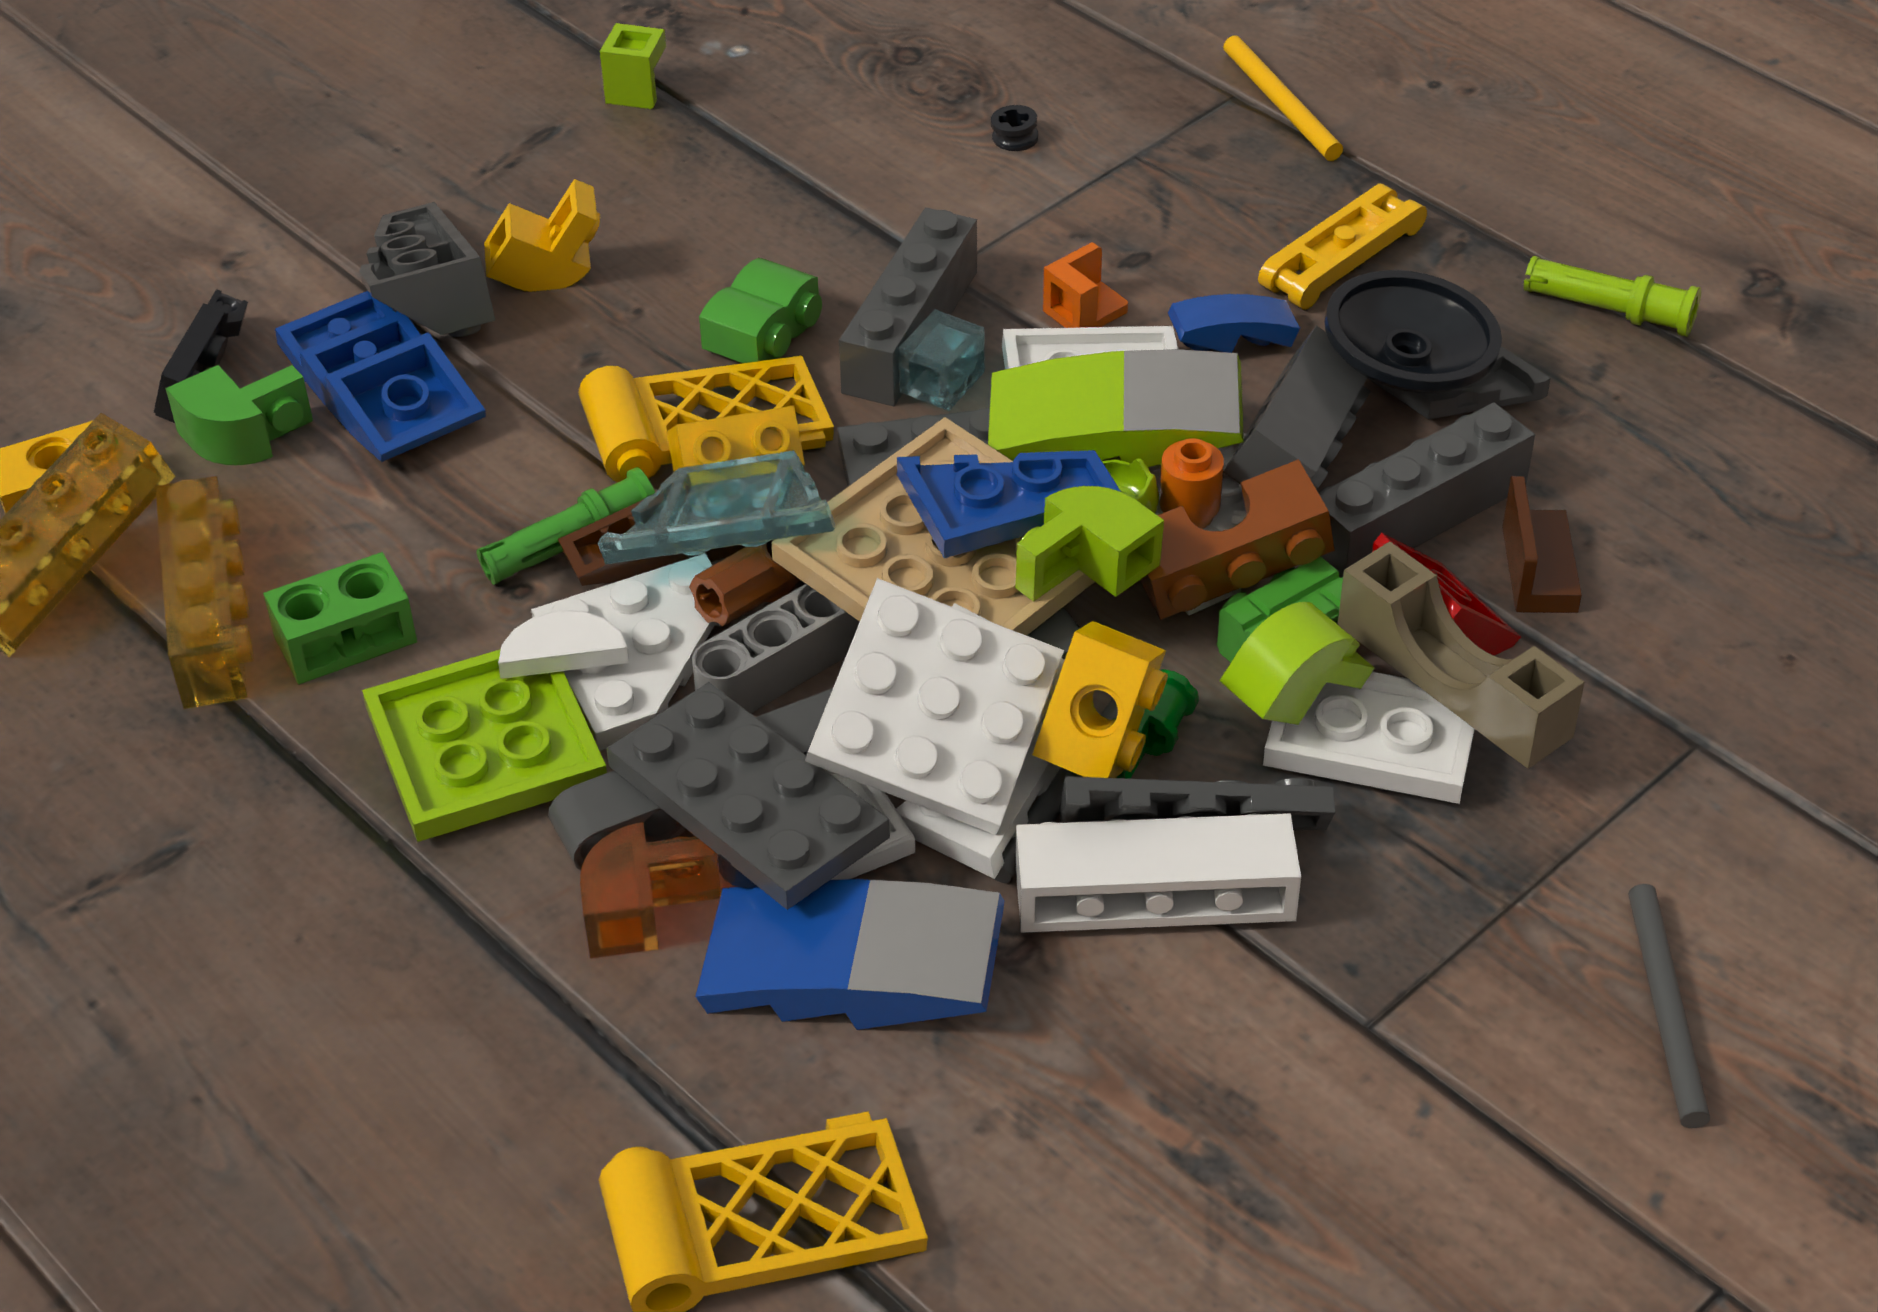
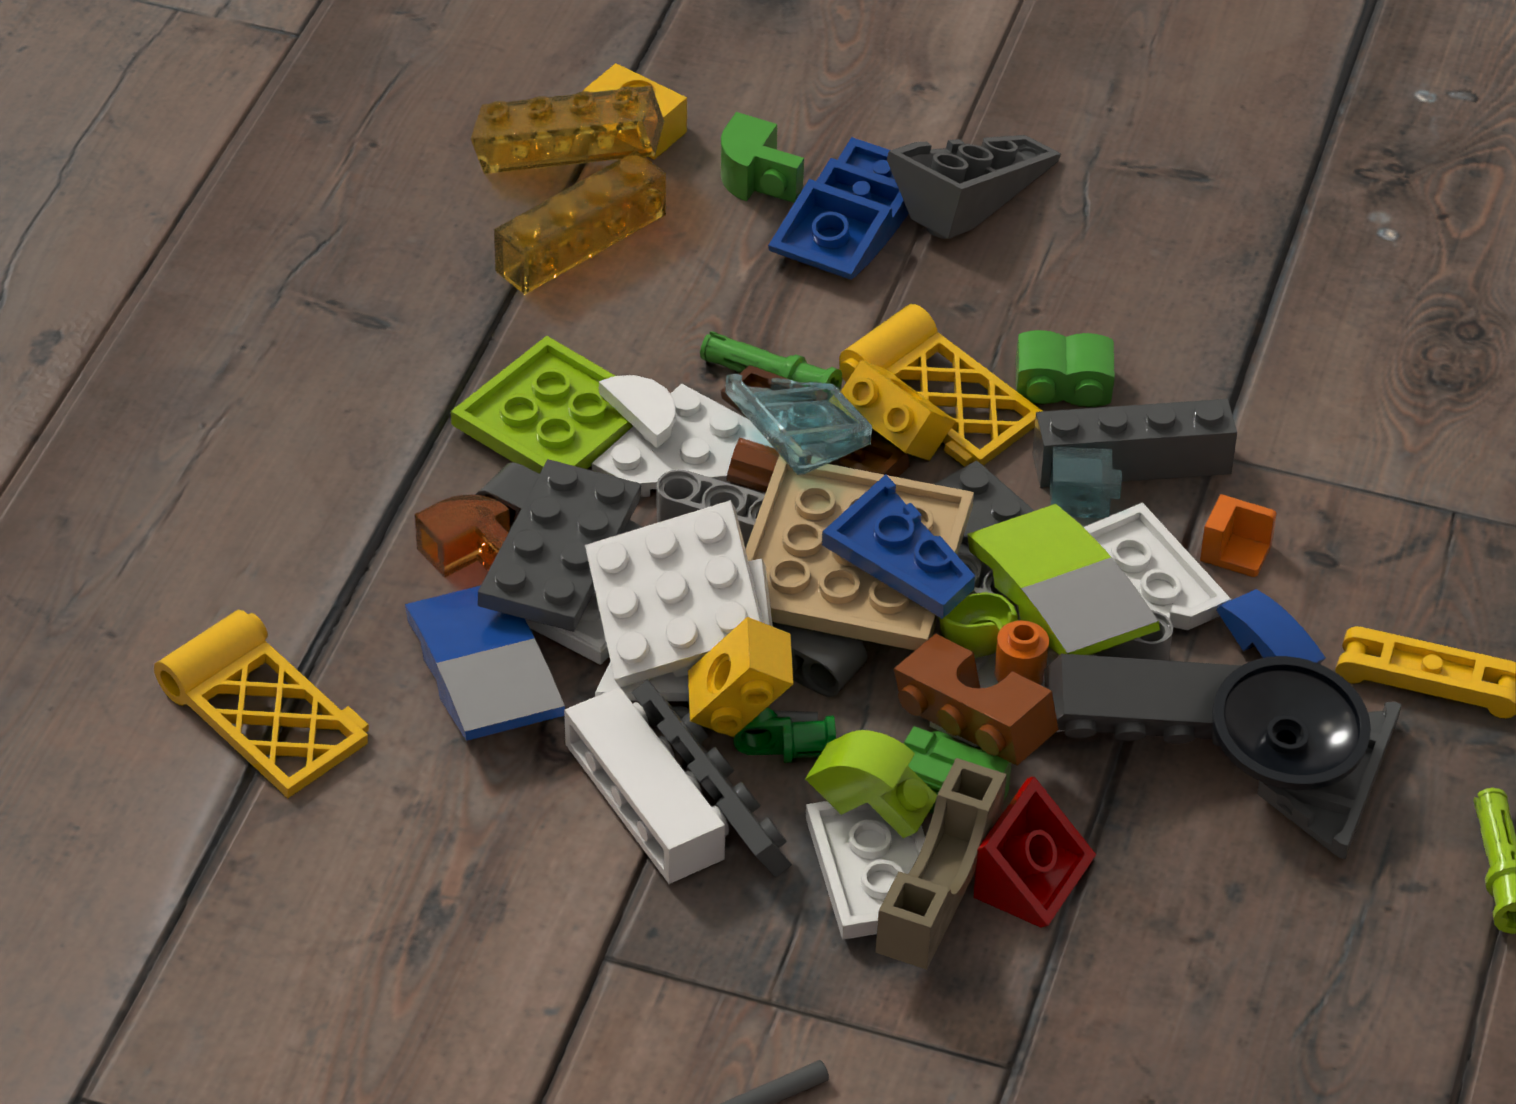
camera: 60 degrees right, 0 degrees up
(201, 345) = (809, 110): black hinge -> none
(340, 617) = (606, 297): bright green brick -> none
(541, 251) = (1038, 225): yellow brick -> none
(629, 65) = (1287, 171): lime panel -> none
(1014, 128) = (1418, 435): black bush -> none
(1092, 532) = (886, 605): lime brick -> none
(1428, 485) = (1148, 806): dark grey brick -> none
(1539, 555) = (1138, 900): reddish brown panel -> none

